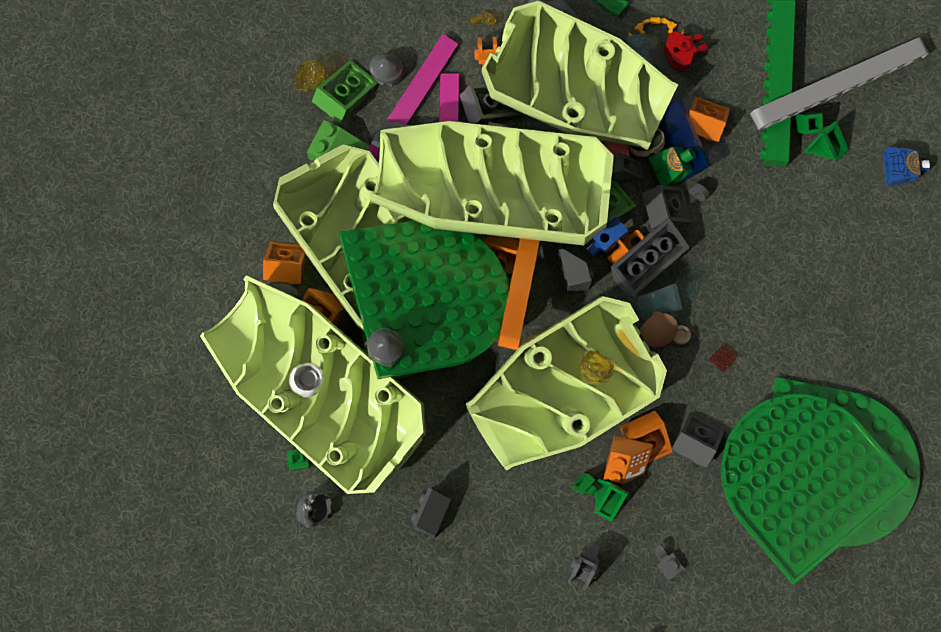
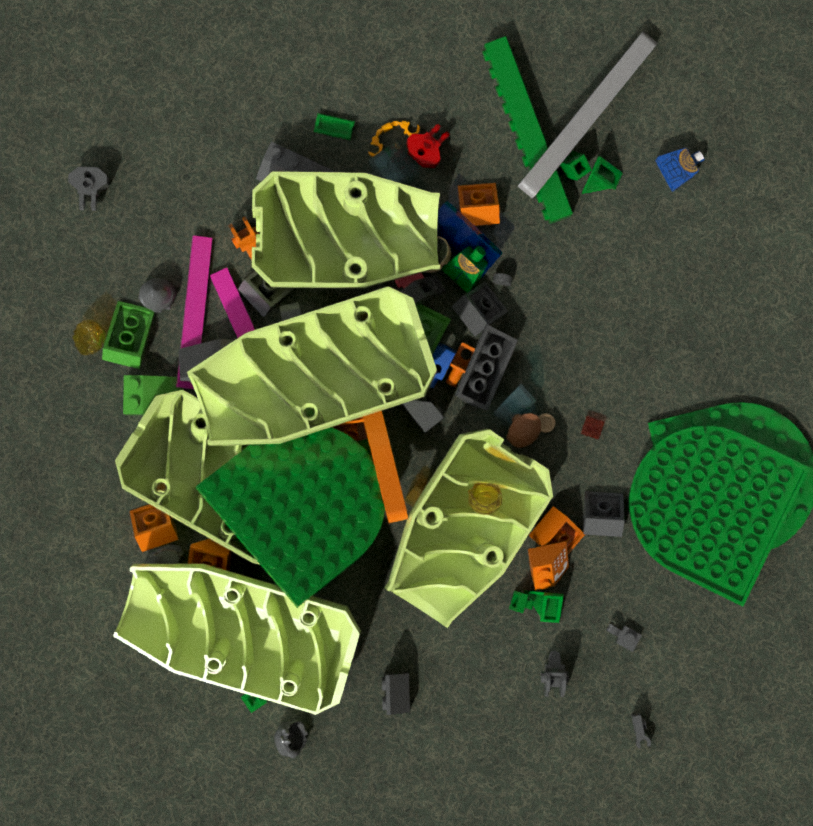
camera: 30 degrees left, 10 degrees up
(306, 379) = (230, 630): white hair -> none
(384, 346) = (290, 578): dark grey hair -> none
(484, 18) = (224, 200): clear yellow arm -> none

